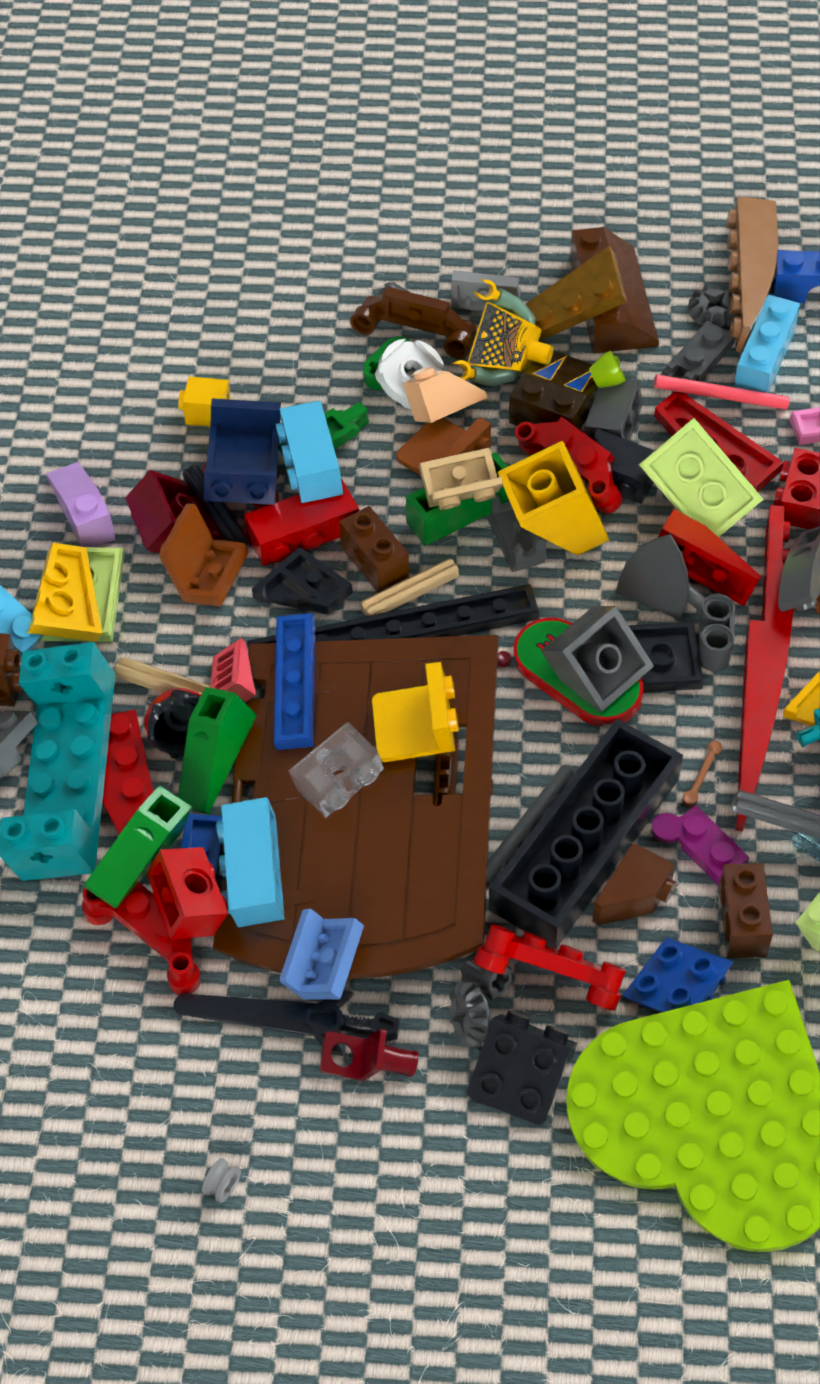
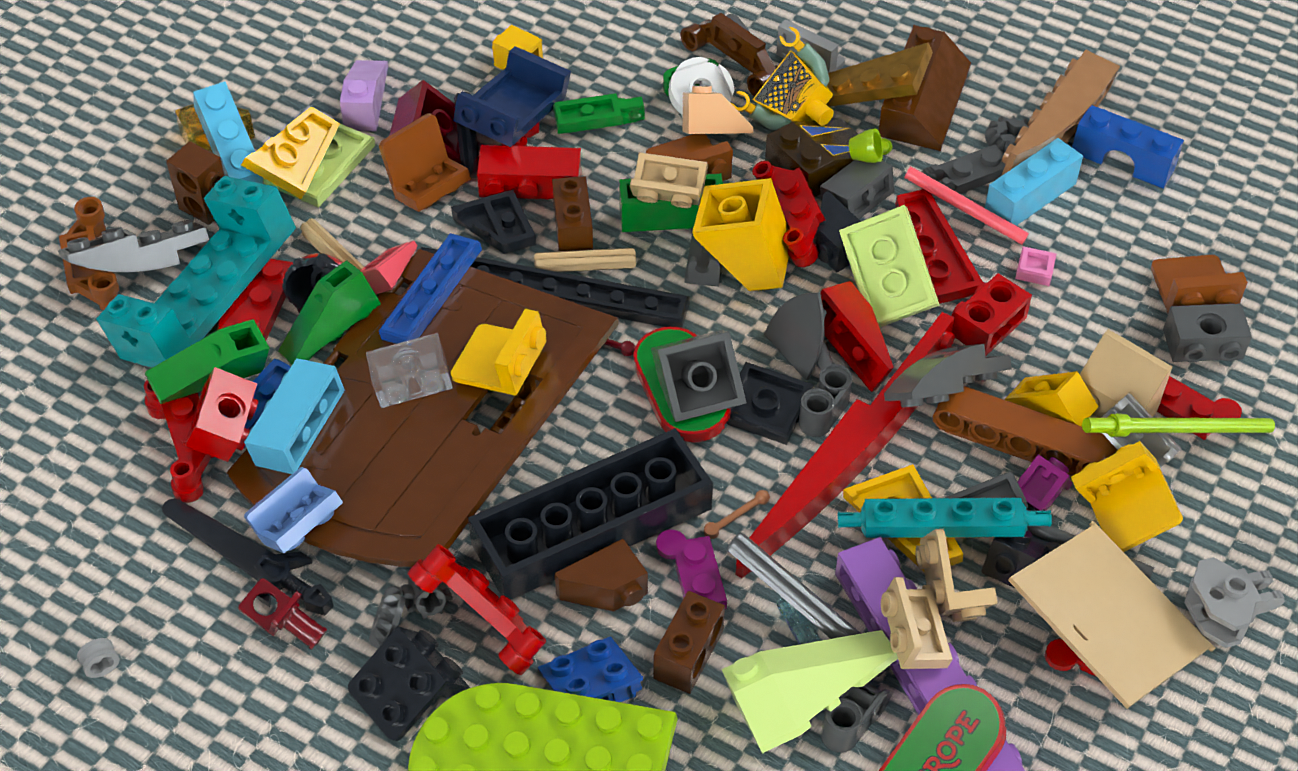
camera: 25 degrees right, 5 degrees down
(309, 452) = (564, 115): medium azure brick -> none

